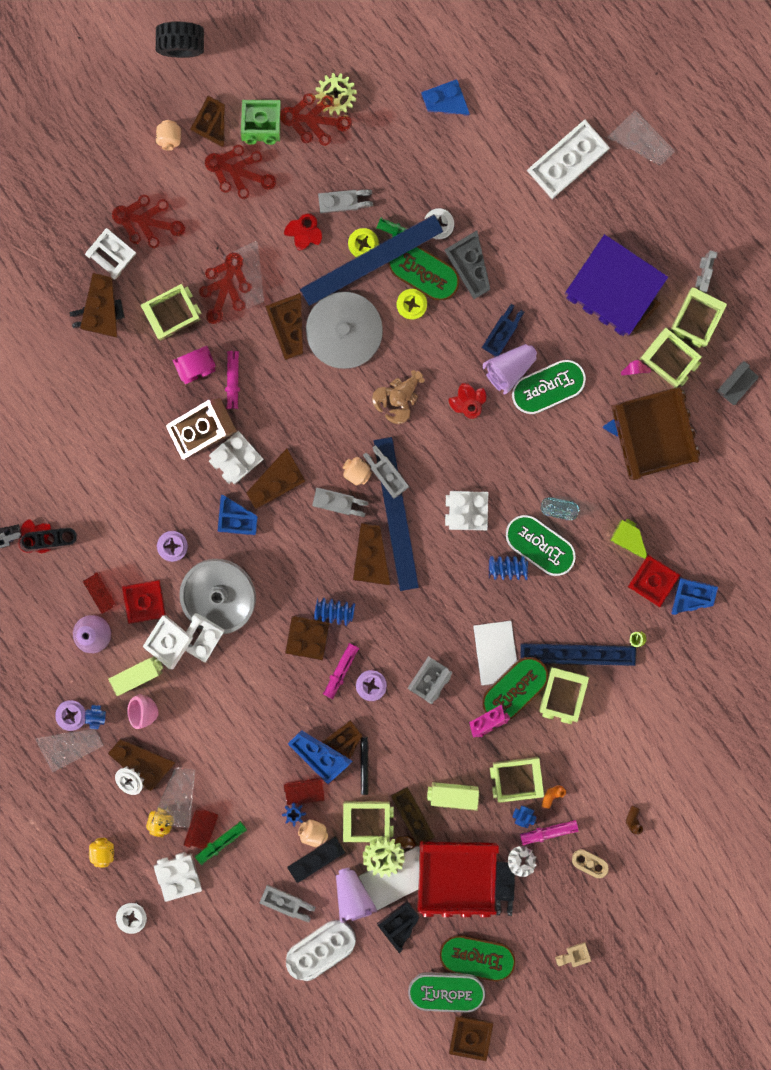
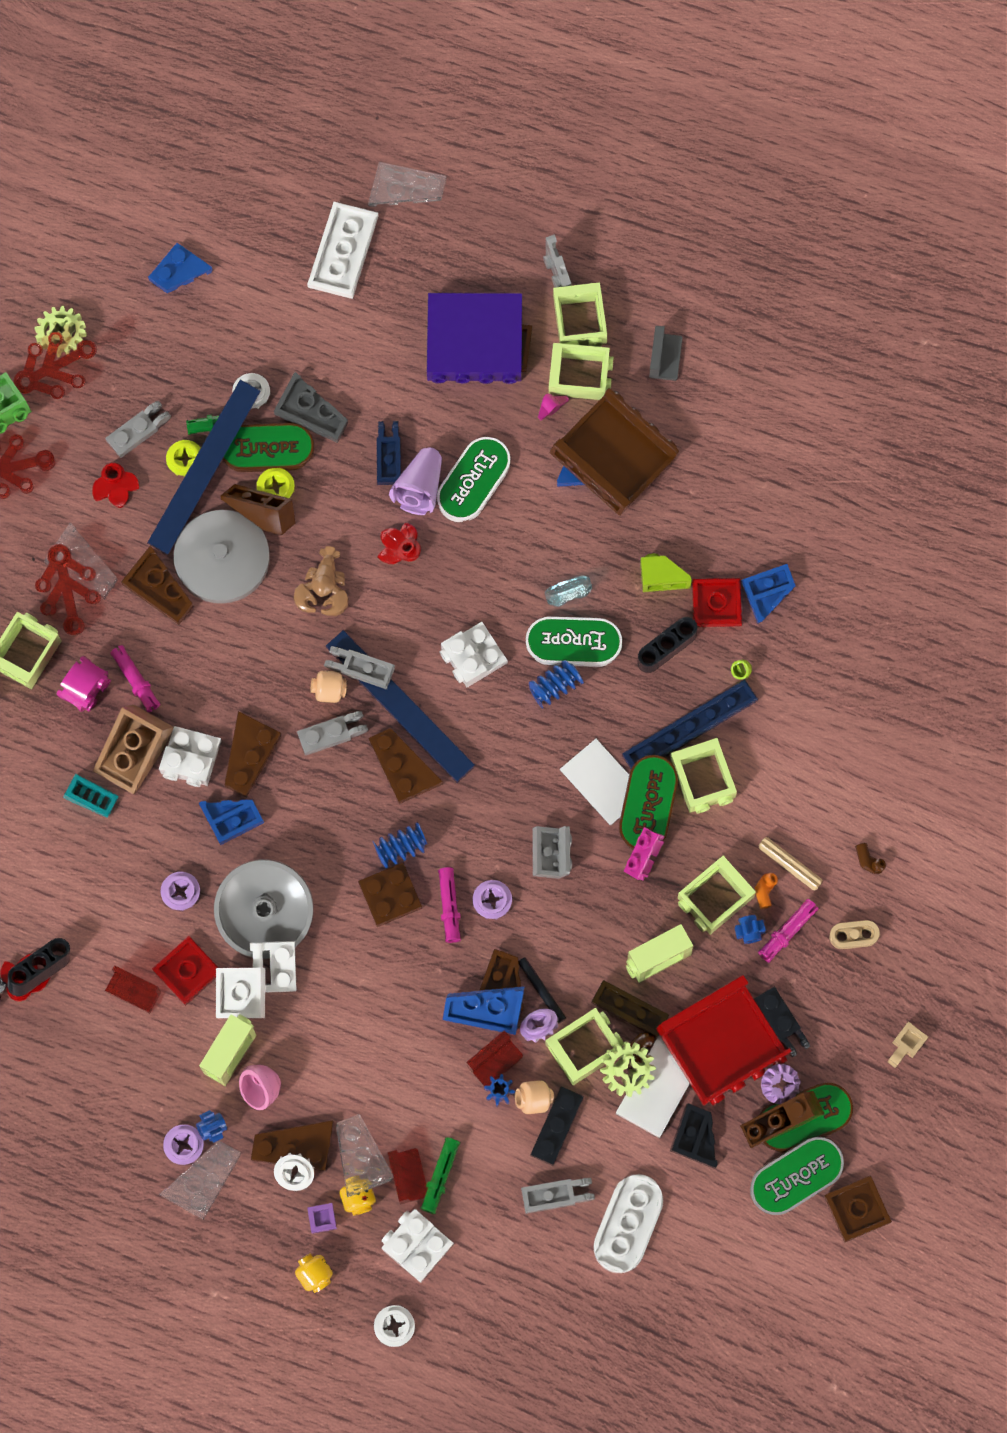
camera: 30 degrees left, 15 degrees down
(98, 631) = (151, 1042): lavender cone -> none
(128, 821) = (322, 1218): none -> medium lavender plate
(144, 428) = (86, 784): none -> teal slope
(351, 783) = (539, 1017): none -> lavender gear
(352, 897) = (625, 1138): lavender cone -> none
(391, 315) = (264, 509): none -> reddish brown slope
(461, 953) = (782, 1119): none -> reddish brown slope
(472, 923) = (773, 1076): none -> lavender gear
(514, 861) = (772, 983): white gear -> none
(581, 789) = (790, 863): none -> tan axle
(609, 590) = (672, 635): none -> black beam

